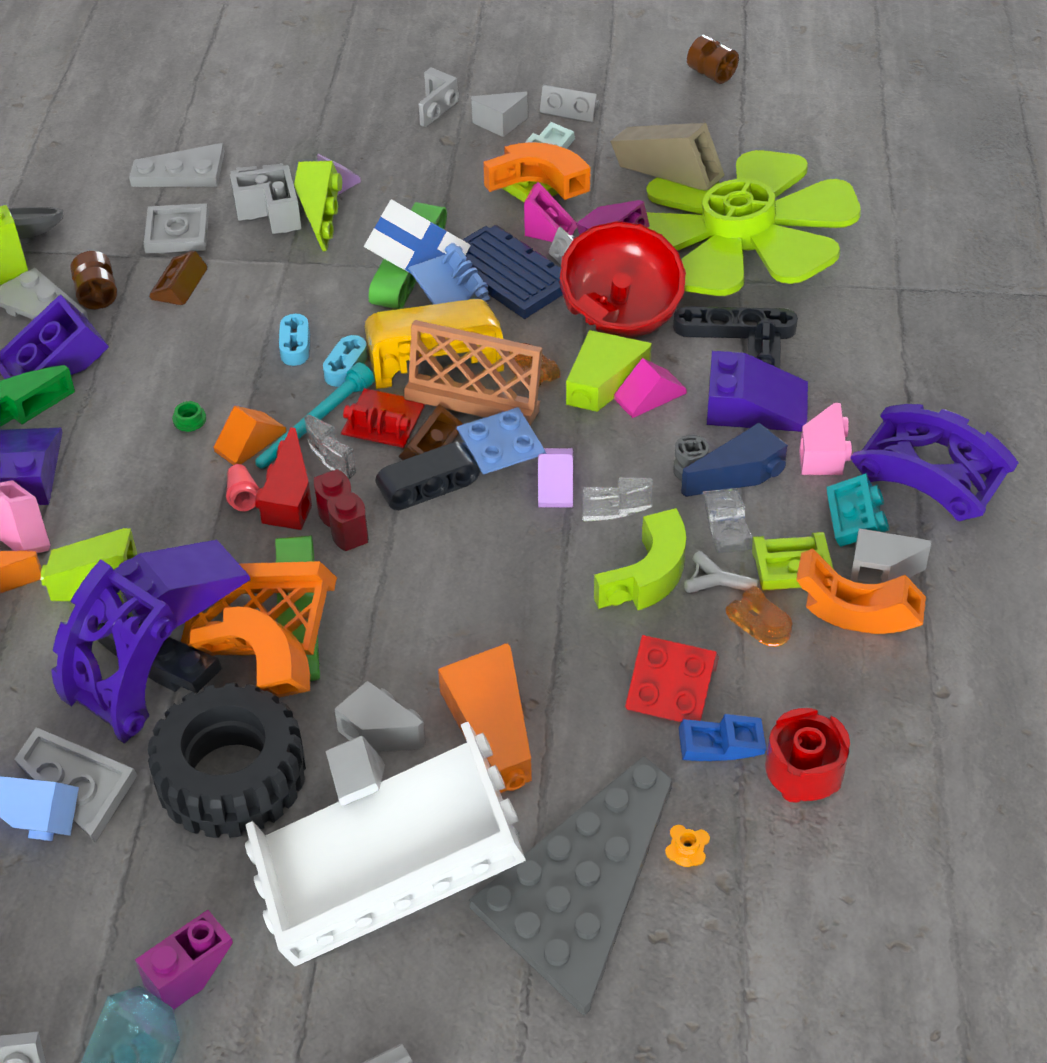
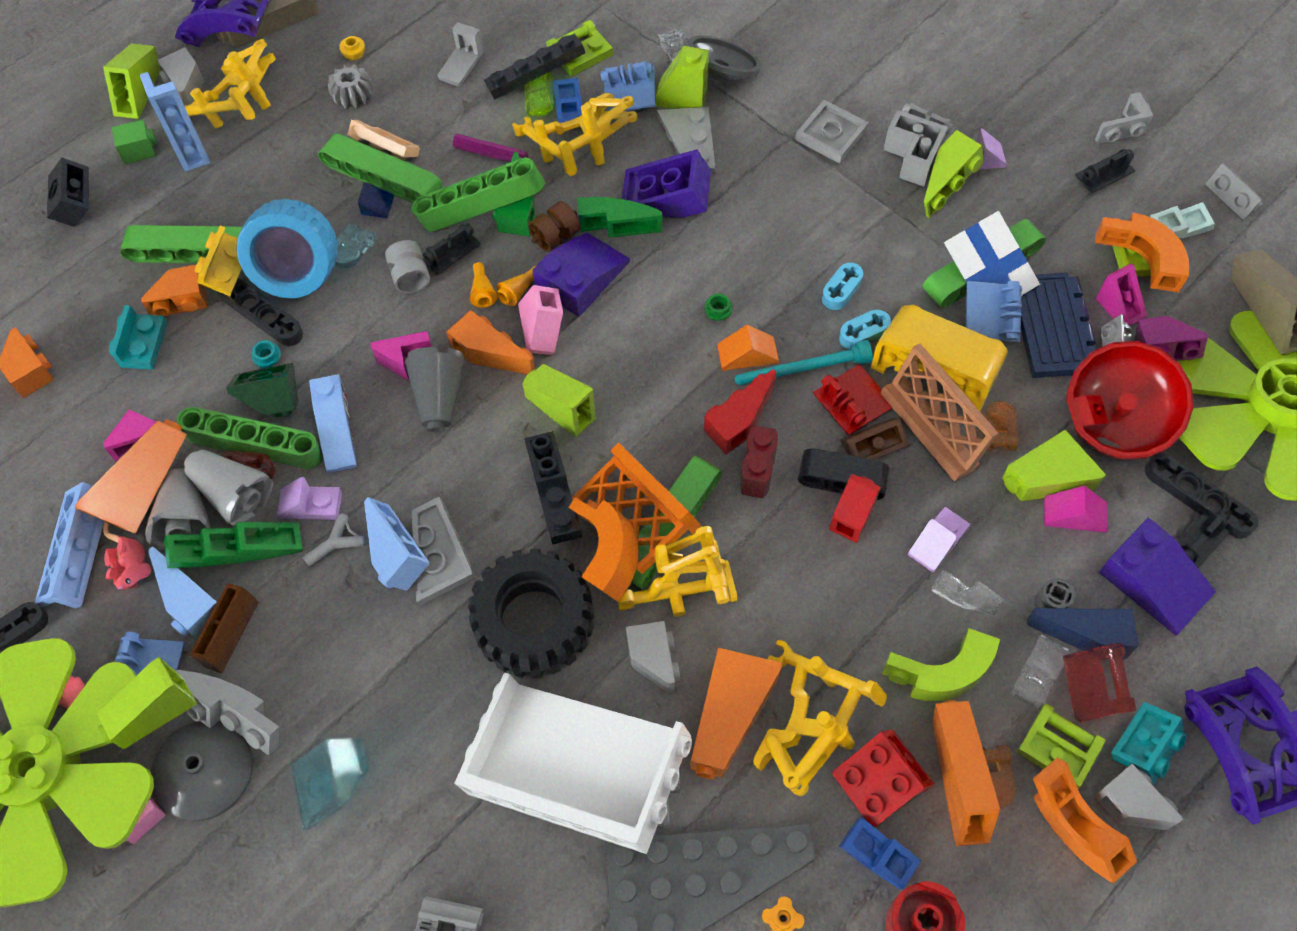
camera: 40 degrees right, 15 degrees up
(77, 674) = (489, 473): dark purple fence -> none
(93, 280) = (737, 144): reddish brown wheel -> none
(179, 279) = (802, 178): reddish brown slope -> none
(180, 169) = (877, 75): light grey wing -> none
(184, 577) = (591, 455): dark purple slope -> none
(184, 960) = (397, 742): magenta slope -> none
(240, 488) = (707, 393): coral cone -> none
(326, 447) = (792, 399): clear slope -> none
(355, 769) = (599, 690): light grey slope -> none
(389, 617) = (672, 564): none -> yellow piece
(452, 139) = (1107, 171): none -> black hinge
(463, 489) = (855, 507): none -> red slope
(499, 111) = (1167, 167): light grey slope -> none
(500, 440) = (918, 482): medium blue hinge -> none
(600, 667) = (828, 729): none -> yellow piece
(715, 576) = (992, 716): light grey piece -> none
(739, 626) = (965, 774): none -> orange slope
(774, 499) = (1088, 682): none -> clear red plate
(824, 443) = (1176, 659): bright pink slope -> none

